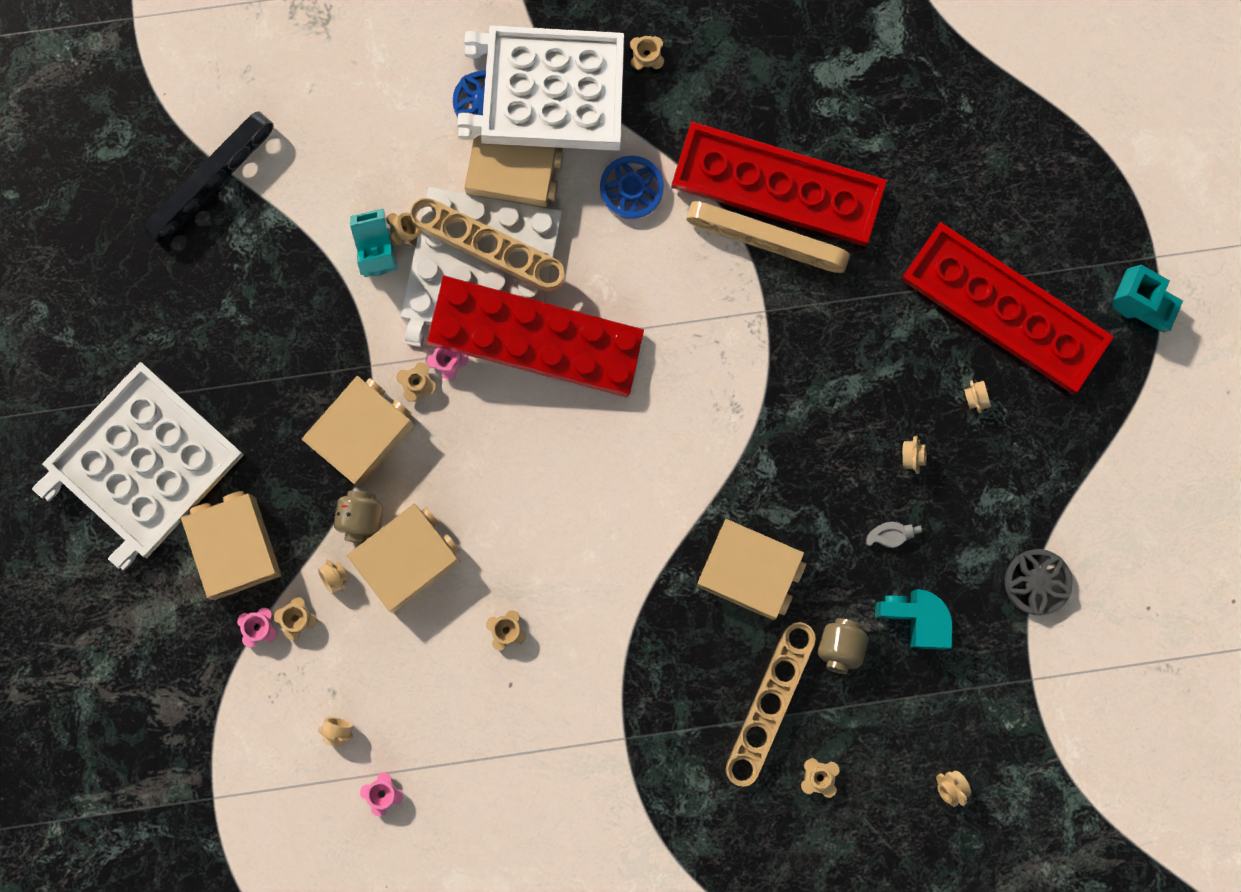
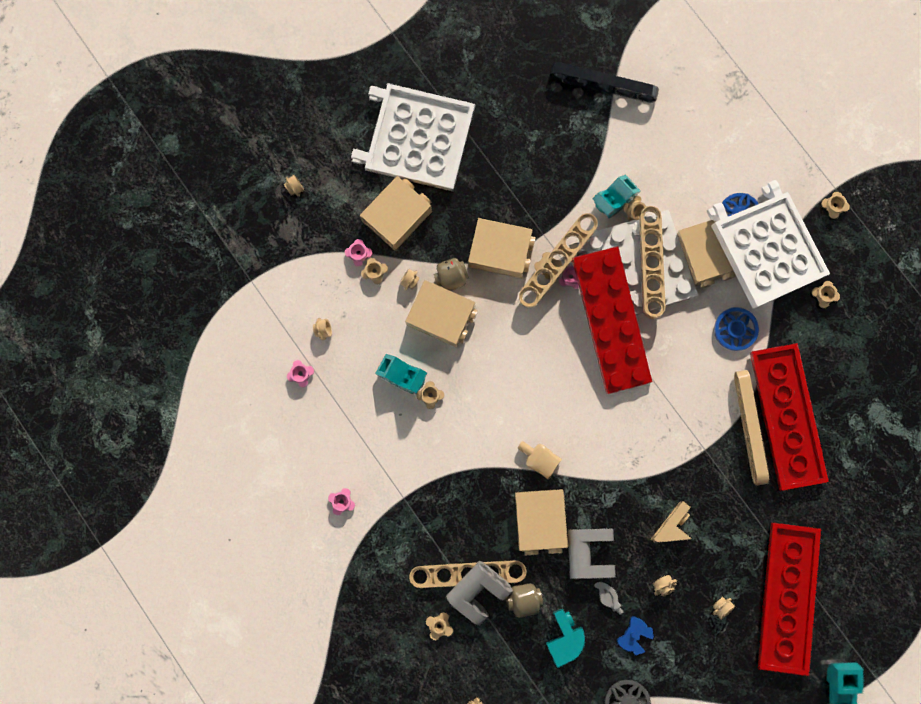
camera: 70 degrees right, 0 degrees up
(112, 669) = (293, 185): none -> tan plate
(406, 351) = (560, 249): none -> tan beam
(458, 654) = (401, 374): none -> teal brick
(578, 831) = (335, 501): none -> bright pink plate
(668, 528) = (540, 459): none -> tan piece
(794, 721) = (472, 583): none -> light grey connector
(818, 541) = (580, 555): none -> light grey connector
(846, 412) = (668, 530): none -> tan slope
(949, 520) = (632, 634): none -> blue piece

